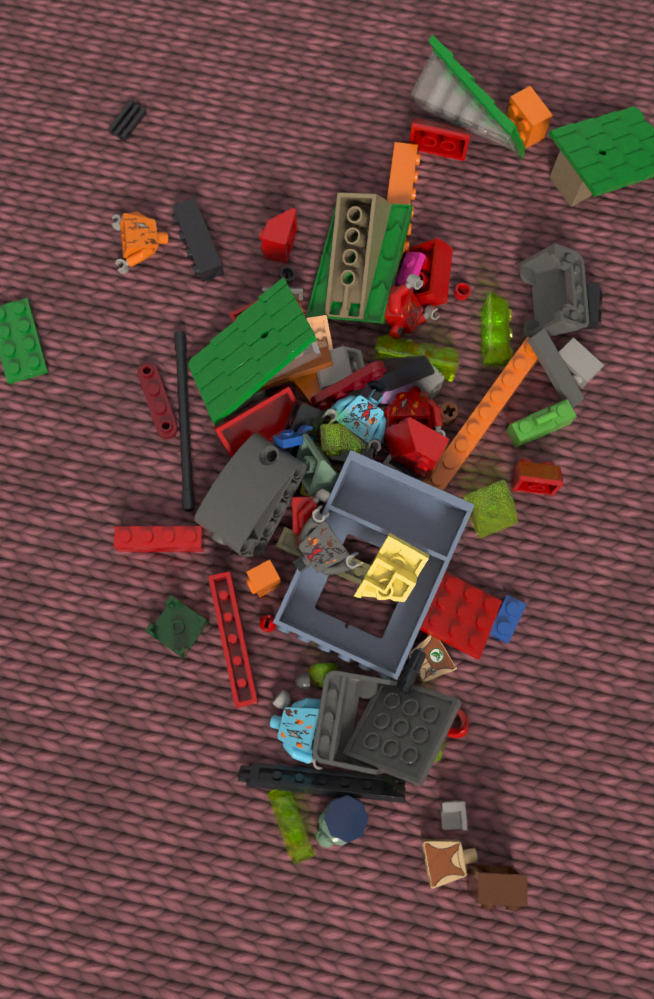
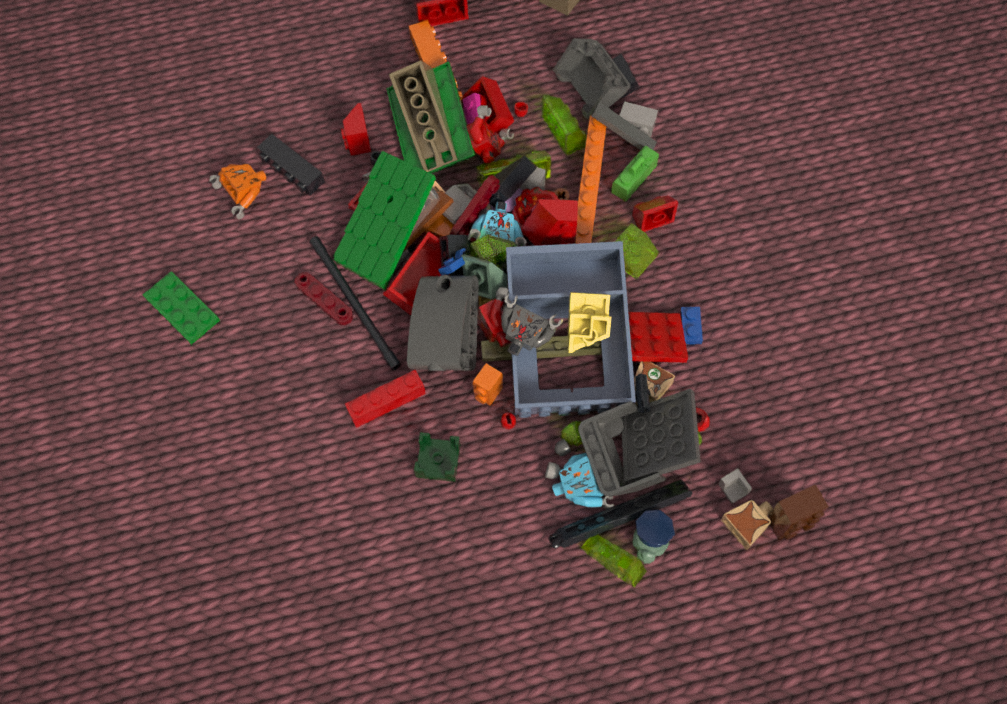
camera: 25 degrees left, 10 degrees down
(124, 120) = (183, 94): black tile -> none
(233, 640) = (489, 443): red brick -> none

